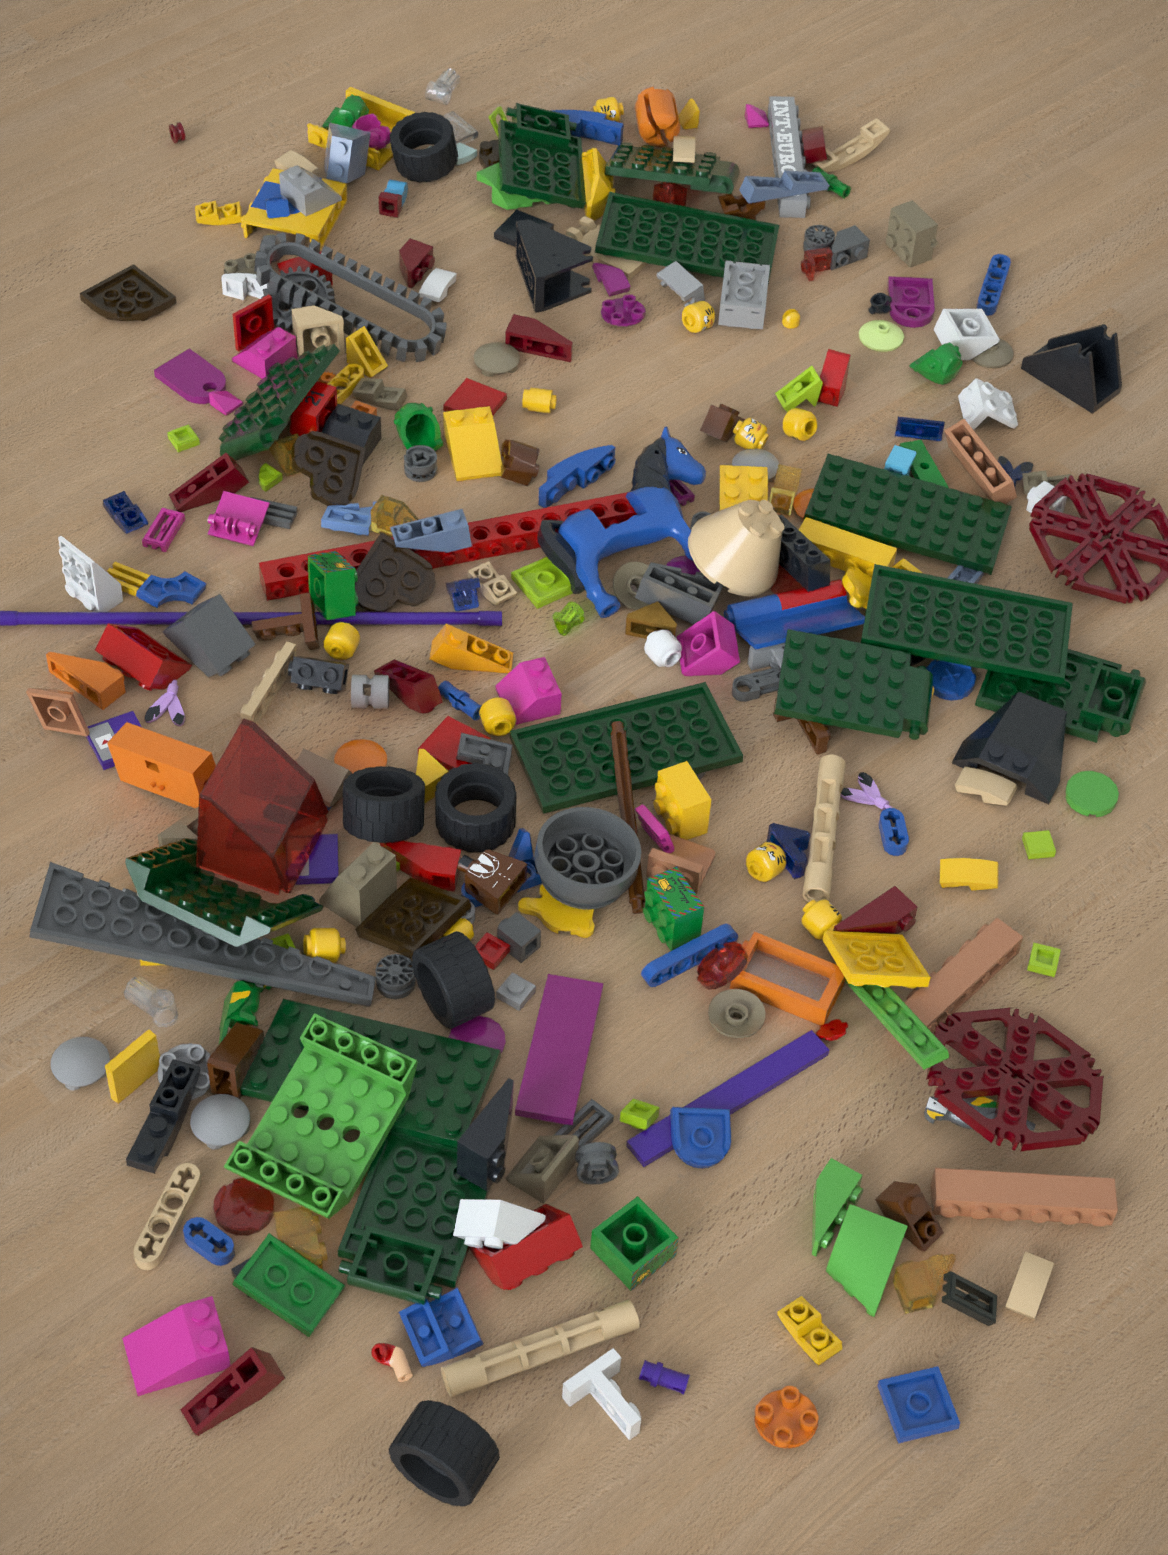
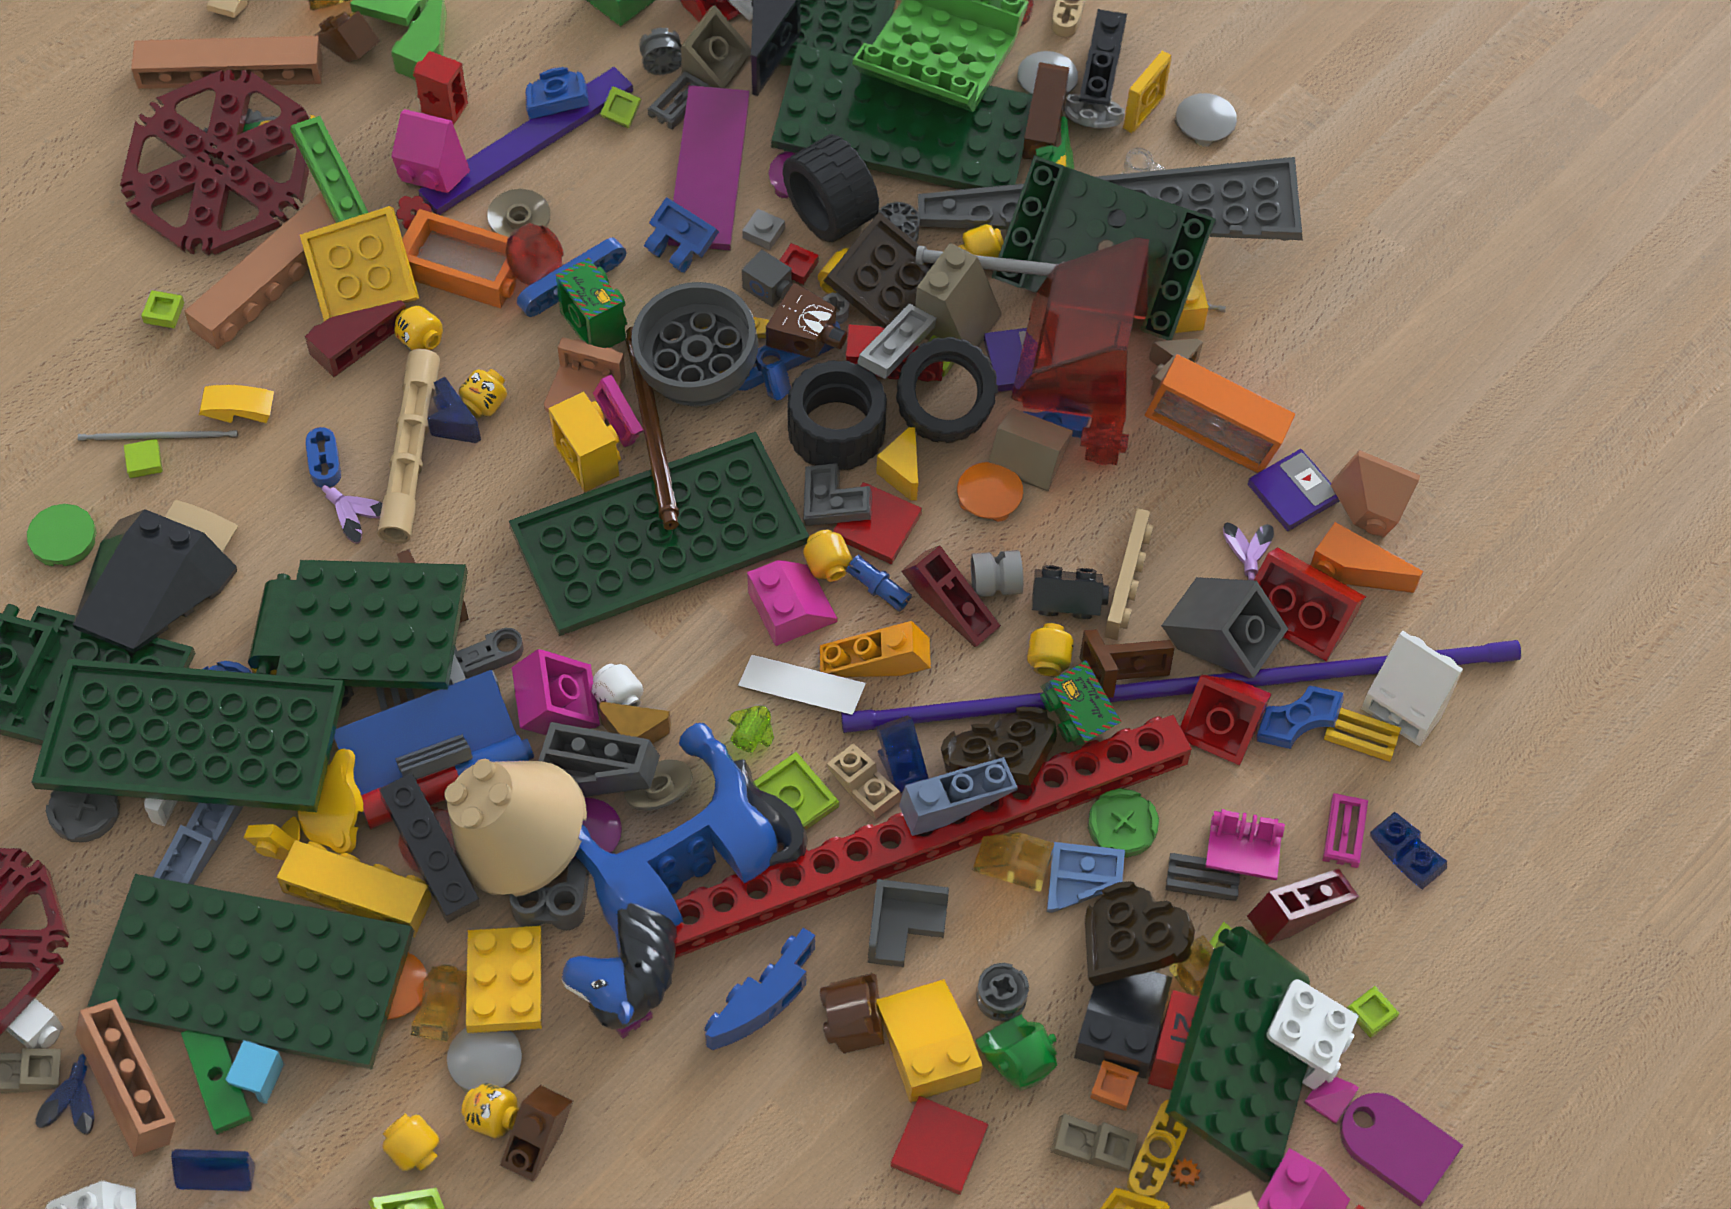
camera: 175 degrees right, 10 degrees up
(228, 409) = (1313, 1031): none -> white bracket
(231, 589) = (1224, 716): none -> red slope
(314, 540) = (1123, 822): none -> bright green tile
(322, 898) = (992, 263): none -> light grey bar
(420, 838) = (897, 341): none -> light grey plate
(486, 504) = (901, 911): none -> dark grey panel
(527, 642) = (802, 684): none -> white sticker
(539, 400) = (836, 1148): yellow brick -> none
(589, 976) = (684, 228): none -> blue plate
(812, 1131) = (441, 86): none -> red brick
(814, 600) = (435, 757): none -> dark grey tile
(819, 1059) = (428, 152): none -> dark pink slope
(1045, 866) = (157, 435): none -> light grey piece

